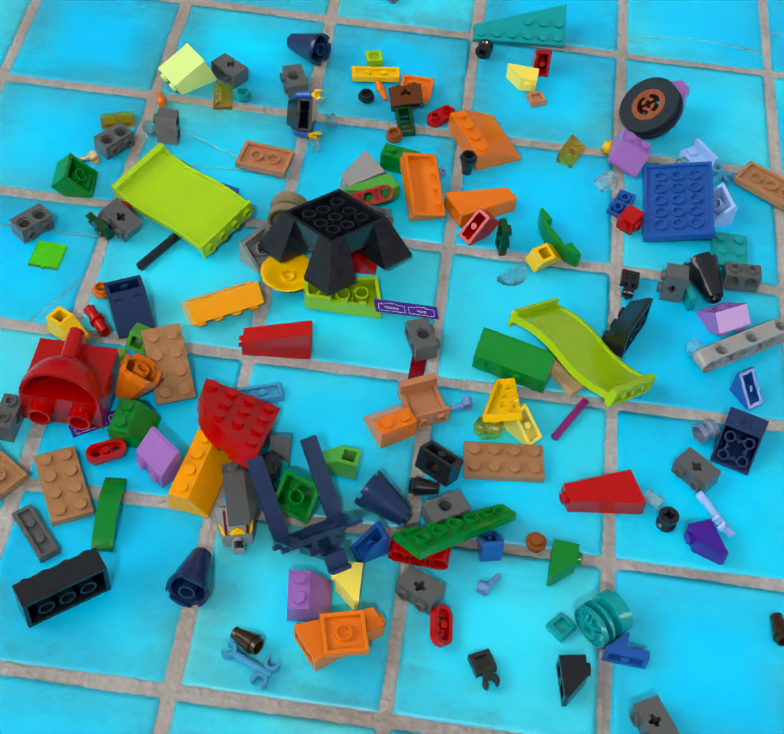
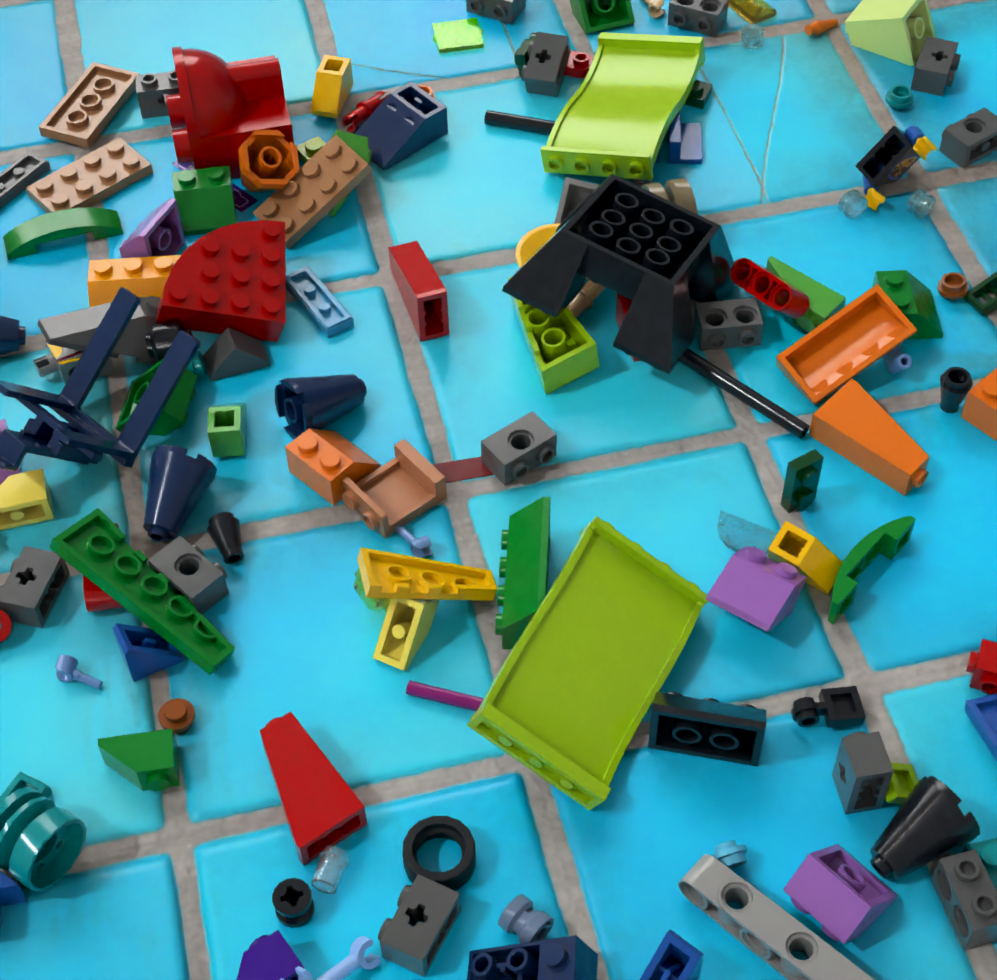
camera: 75 degrees right, 0 degrees up
(105, 451) = (150, 191): red plate -> none
(167, 126) = (755, 41): dark grey brick -> none
(221, 96) = (879, 80): clear yellow slope -> none
(222, 302) = (462, 211): light orange slope -> none
(264, 159) = (780, 162): nougat plate -> none
(348, 416) = (317, 400): none -> dark blue cone
(361, 170) = (834, 268): light grey slope -> none
(371, 544) = (104, 498): blue slope -> none
(406, 309) = (566, 409): dark purple sticker -> none
(433, 236) = (745, 394): none -> black piece
(438, 463) = (269, 537): black brick -> none
(478, 227) = (827, 440): red slope -> none
(503, 462) = (325, 631): medium nougat plate -> none
(559, 278) = (757, 588): none -> medium lavender slope
(661, 441) = (440, 827): none -> black tyre
(689, 298) = (853, 817): teal tile -> none

